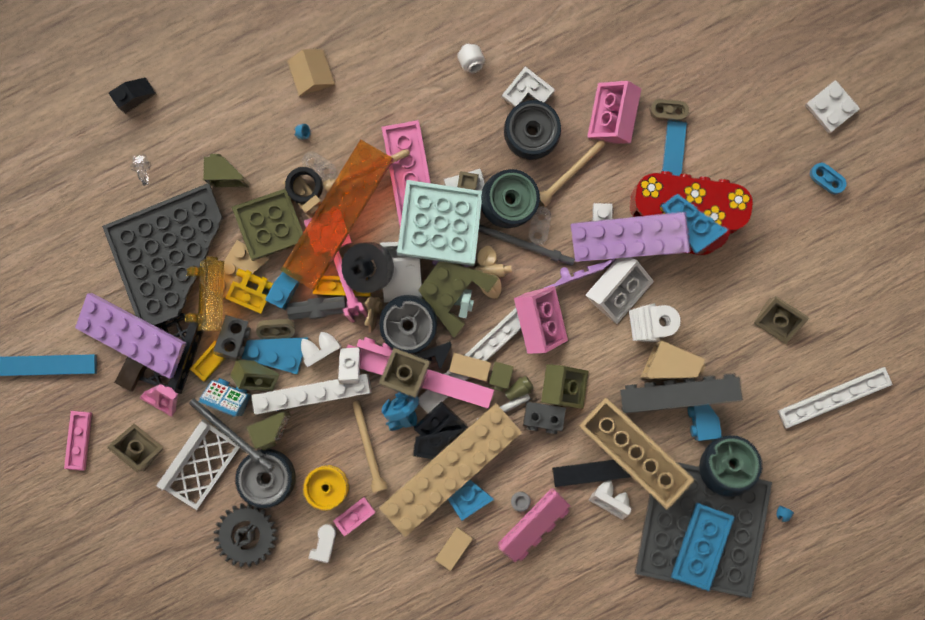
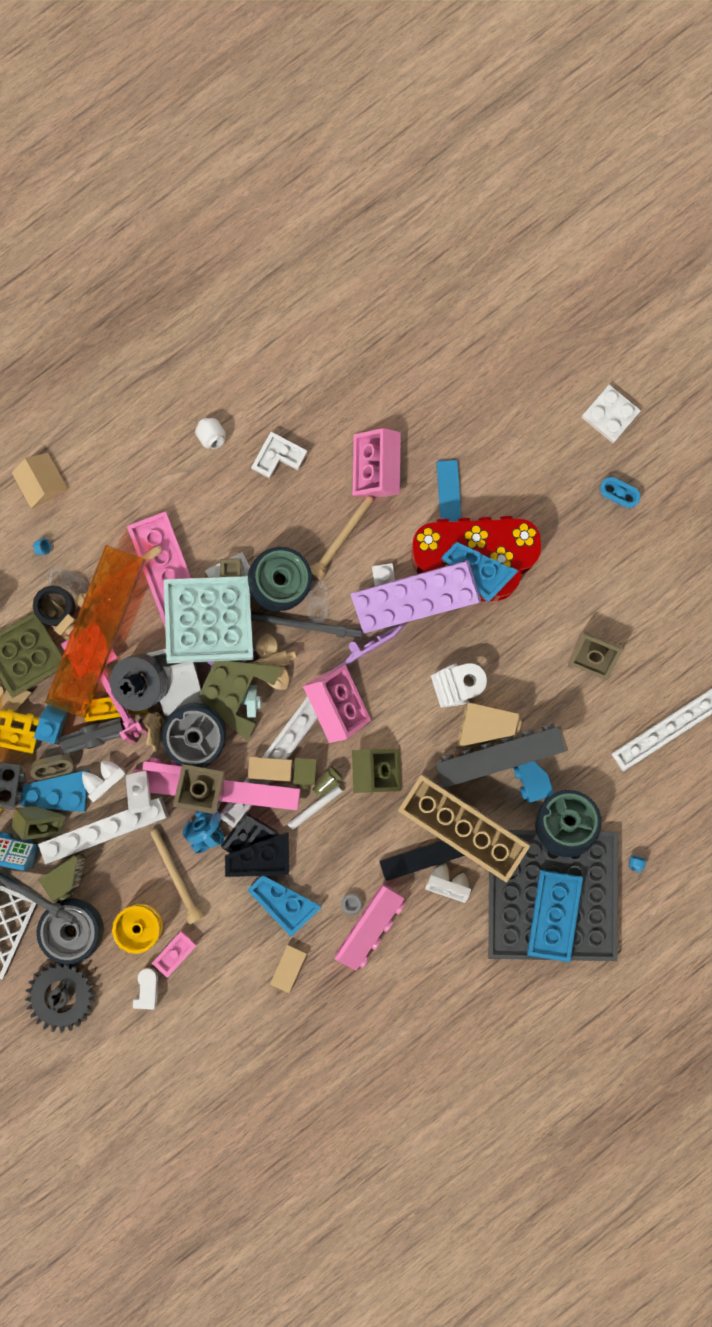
camera: 10 degrees left, 0 degrees up
(439, 352) = (234, 759): black slope -> none
(450, 470) = (268, 884): tan plate -> none
(532, 115) = (290, 483): dark grey wheel -> none
(544, 416) = (359, 807): dark grey brick -> none
(619, 288) = (416, 653): white slope -> none
(668, 108) = (435, 450): dark tan plate -> none

